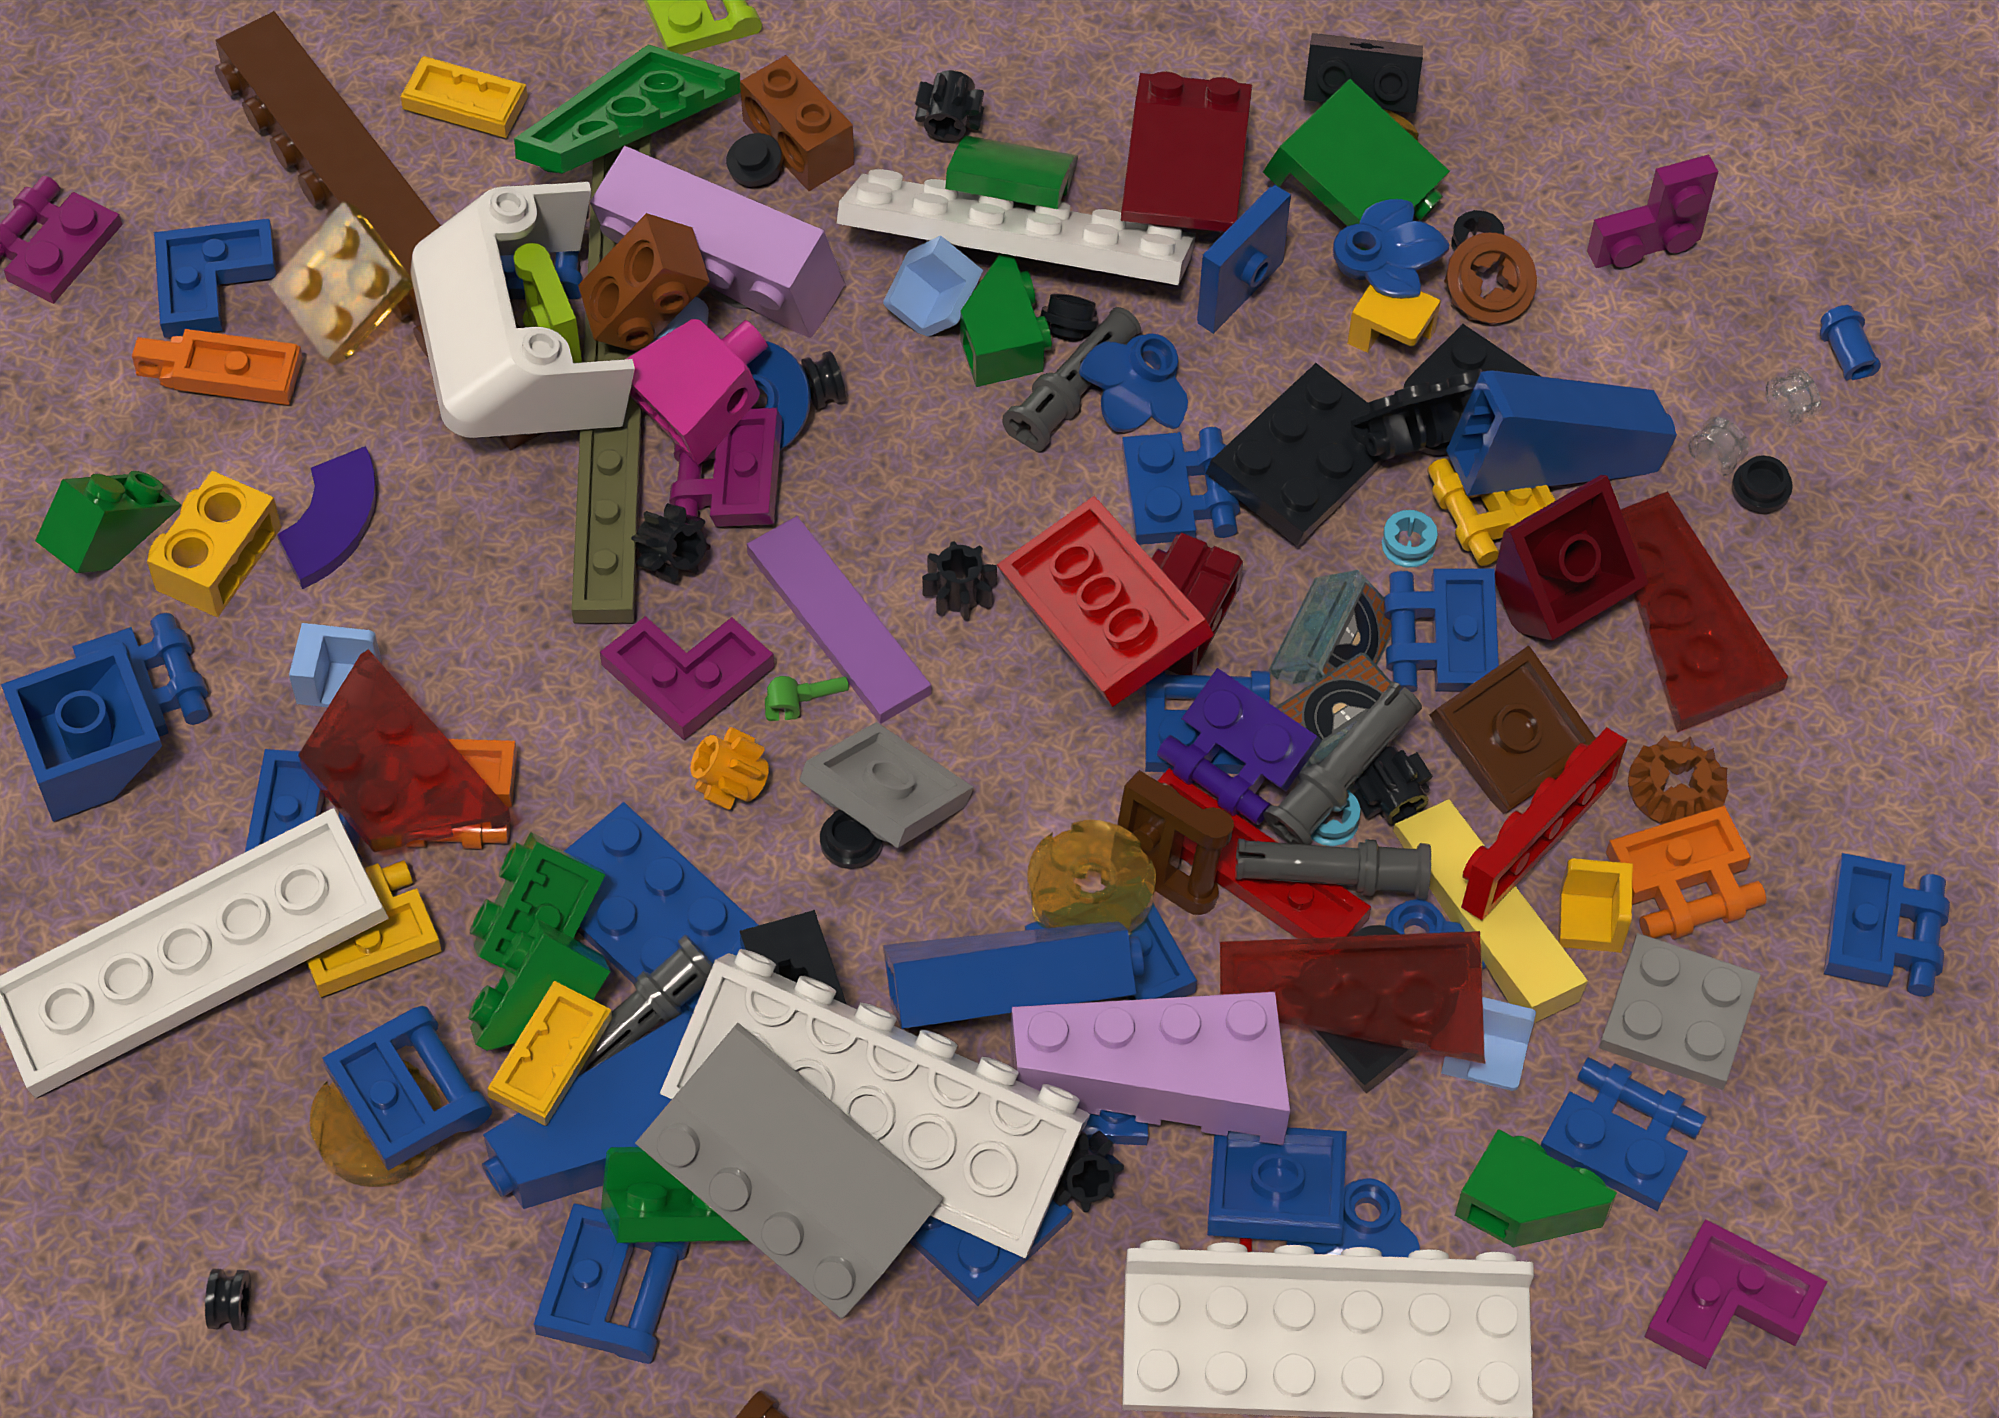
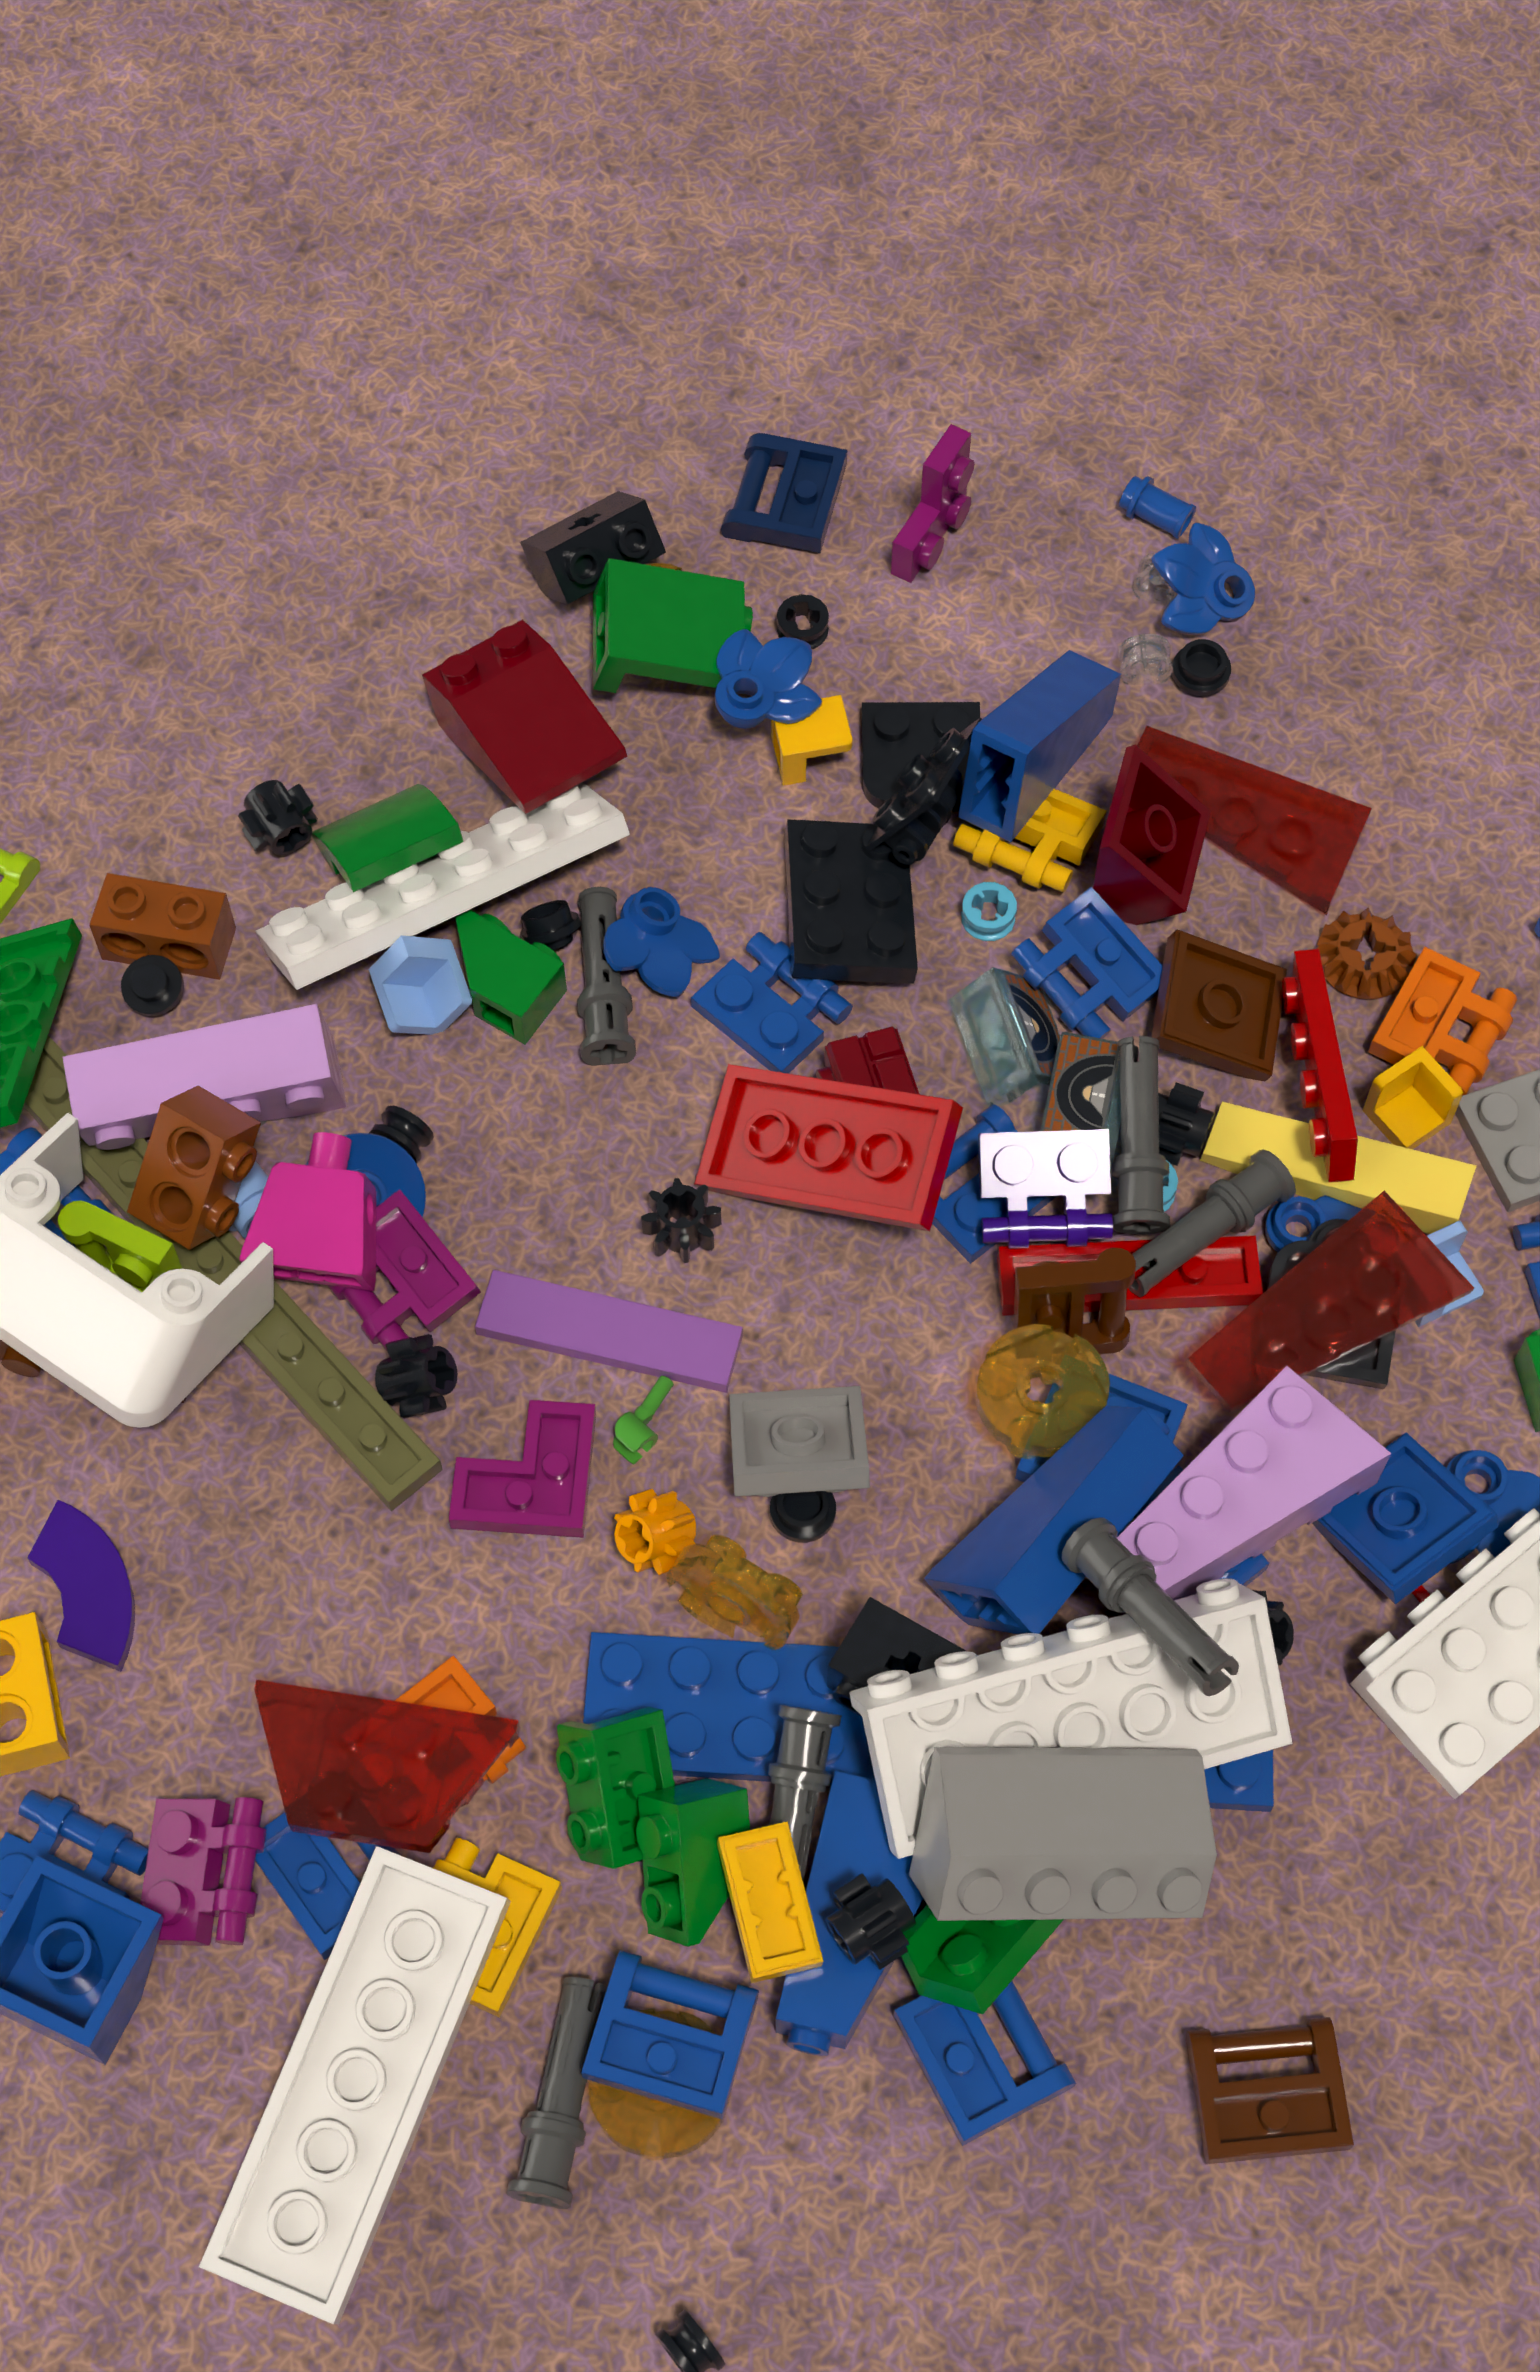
camera: 40 degrees left, 5 degrees up
(221, 744) = (187, 1864): none -> magenta plate
(281, 1091) = (555, 2126): none -> dark grey pin
(325, 659) = (225, 1718): light blue panel -> none
(598, 1115) = (870, 1921): none -> black gear
(734, 844) = (732, 1591): none -> clear yellow plate
(987, 1034) = (1130, 1586): none -> dark grey pin
(1243, 258) = (660, 773): blue plate -> none
(1515, 273) = (863, 631): dark orange gear -> none
(1566, 148) = (802, 498): none -> dark blue plate
(1816, 412) = (1198, 577): none -> blue plate

